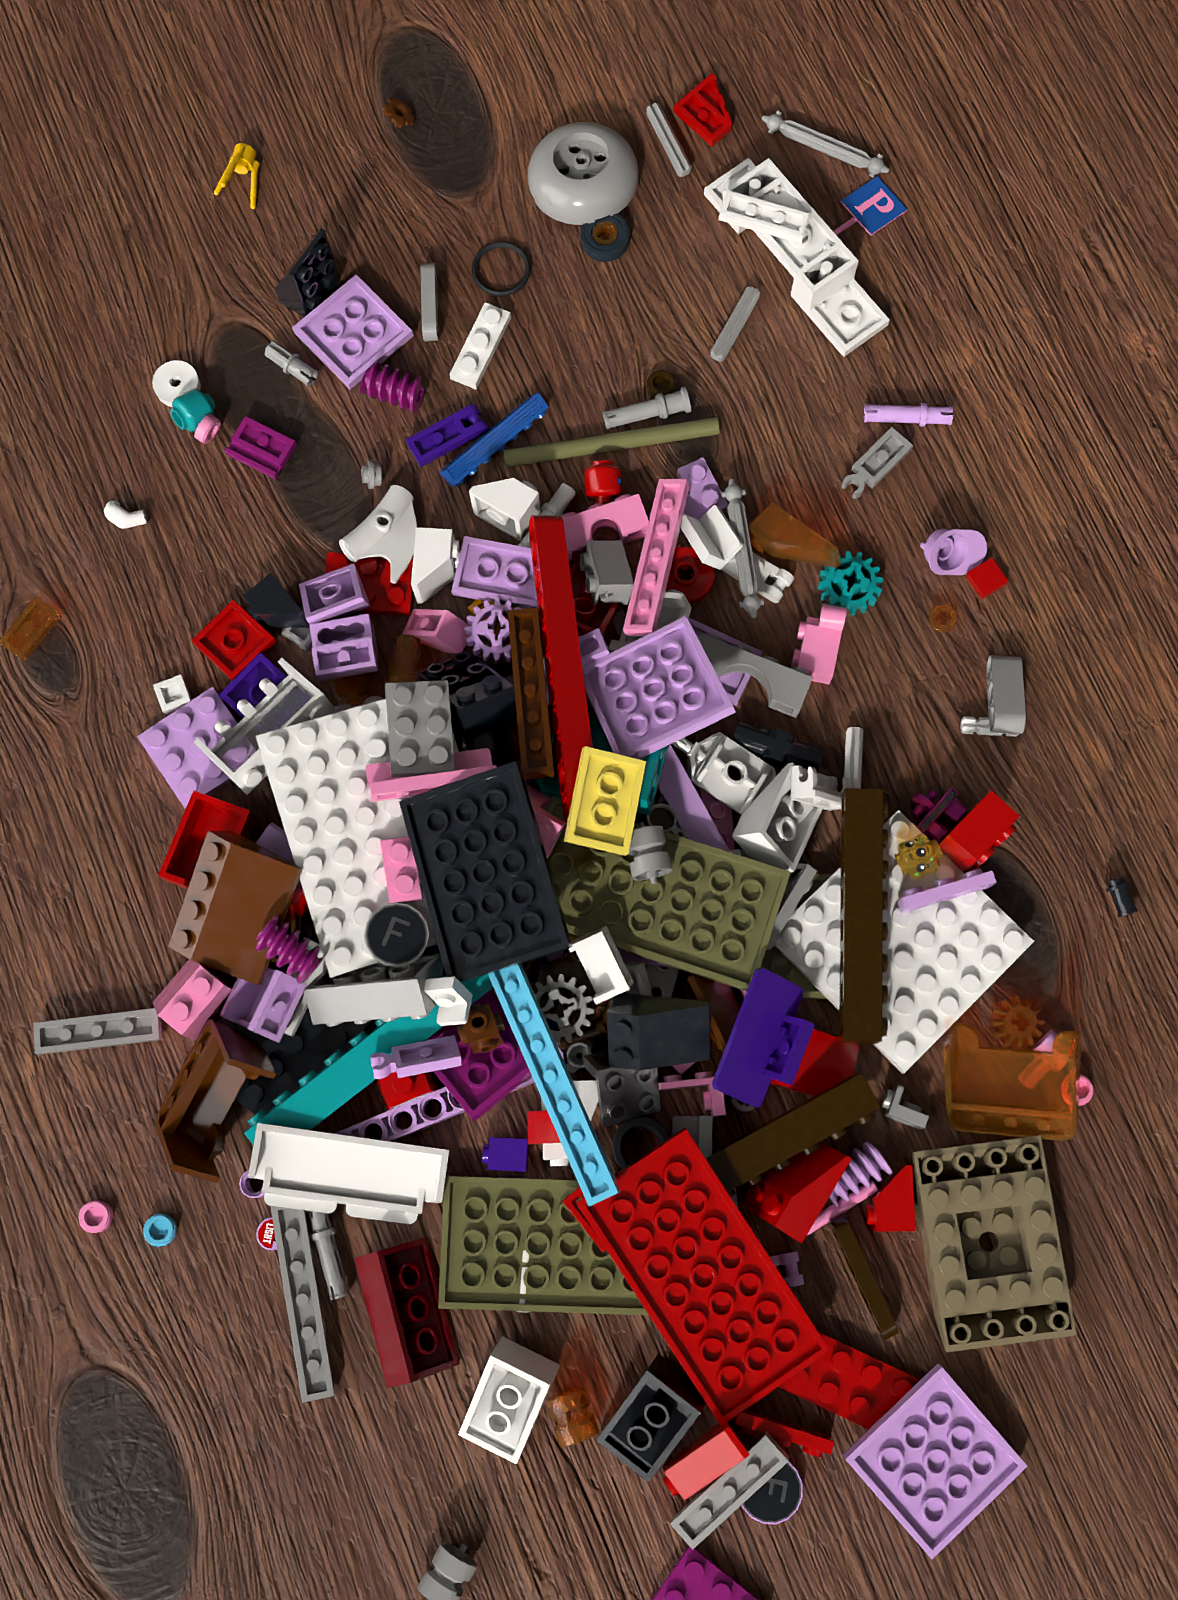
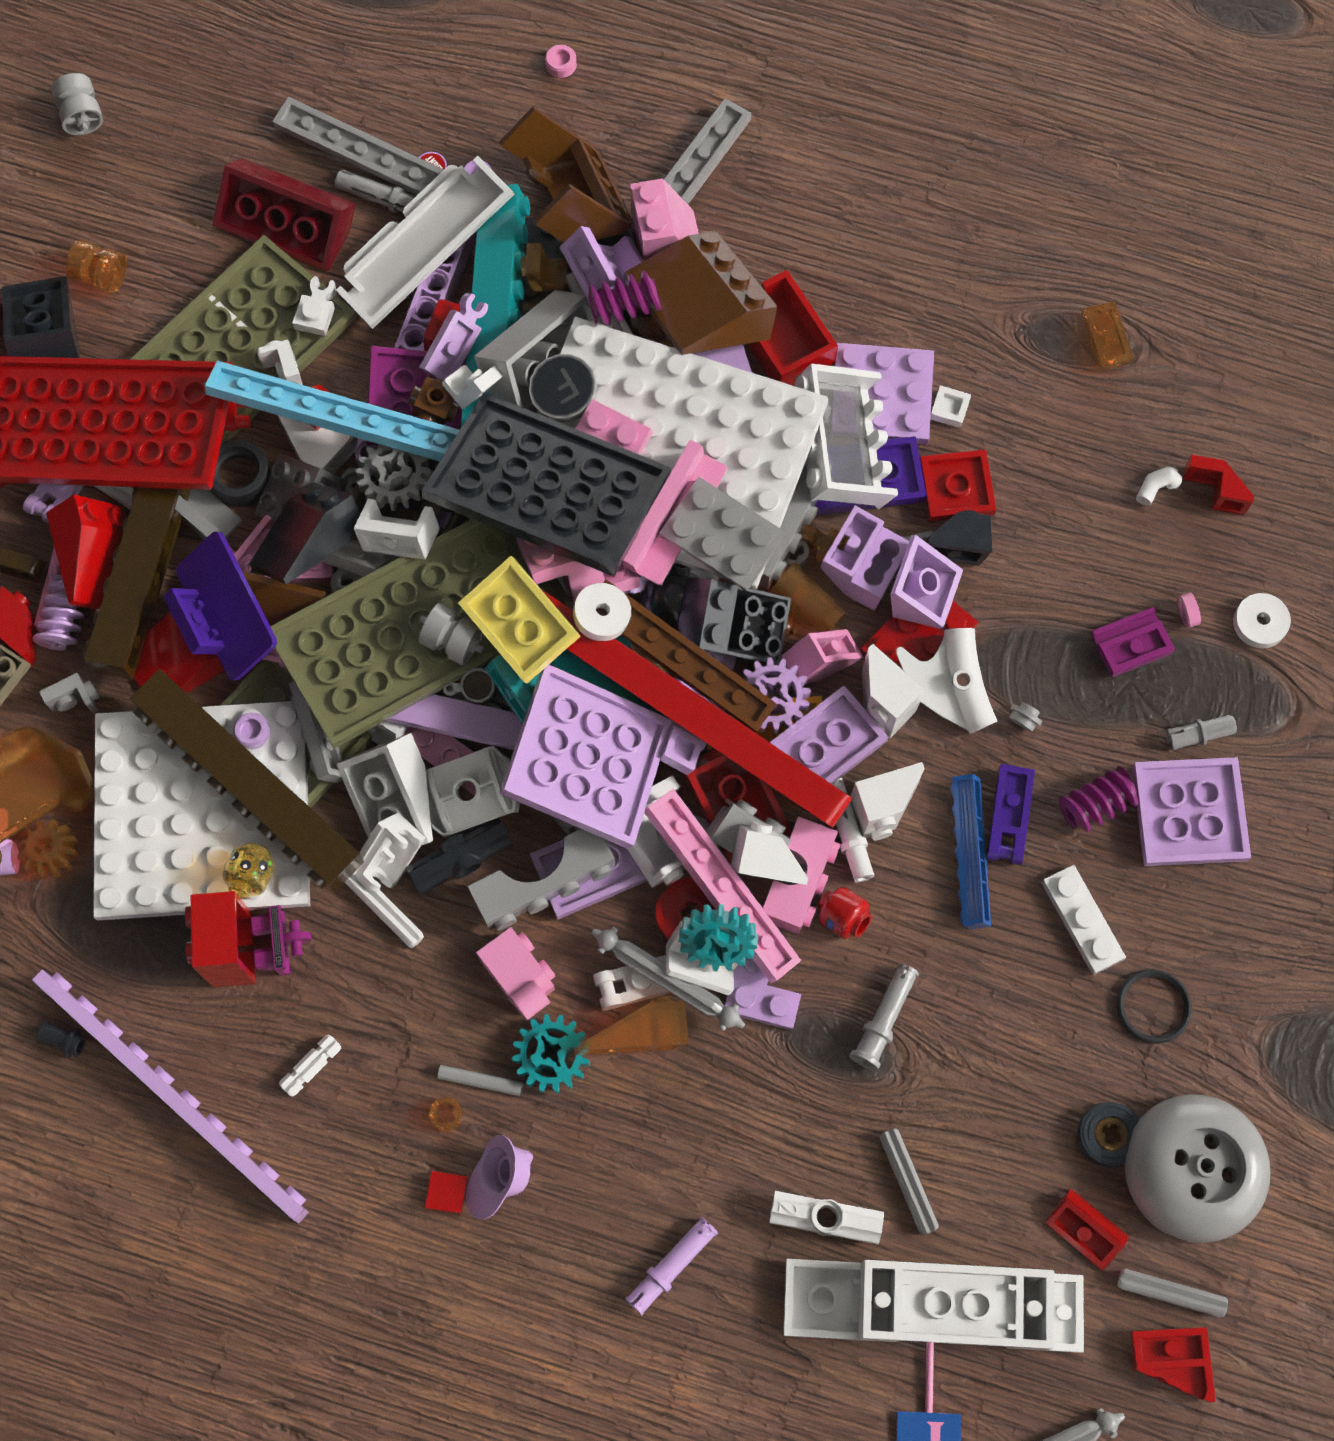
camera: 125 degrees right, 5 degrees down
(92, 469) = (1229, 492): none -> red slope
(160, 1230) = (508, 96): medium azure tile -> none
(191, 408) = (1219, 610): teal head -> none
(299, 1054) = (542, 272): none -> clear orange bracket
(309, 277) = (1277, 805): black slope -> none
(429, 302) = (1167, 905): light grey beam -> none
(471, 1205) = (316, 311): none -> white plate
(506, 1154) = (329, 368): dark purple brick -> none
(508, 1399) = (153, 237): white slope -> none
(534, 1179) = (282, 357): none -> white bracket
(559, 763) = (597, 626): none -> white piece
(611, 442) = (879, 959): olive piece -> none
(616, 542) = (765, 855): none -> white slope
(660, 382) = (902, 1054): dark brown tile -> none
(672, 210) = (1087, 1229): none -> red slope
(696, 524) = (718, 937): none -> teal gear
(764, 216) = (987, 1281): white tile -> none
(809, 362) = (851, 1221): none -> white piece
(823, 947) = (251, 730): none -> lavender tile
(878, 461) = (648, 1192): light grey plate -> none
(903, 616) = (480, 1080): none -> light grey piece
(946, 890) = (200, 866): lavender plate -> none
(1005, 694) = (322, 1098): light grey beam -> none
(1090, 805) = (182, 1103): none -> lavender plate

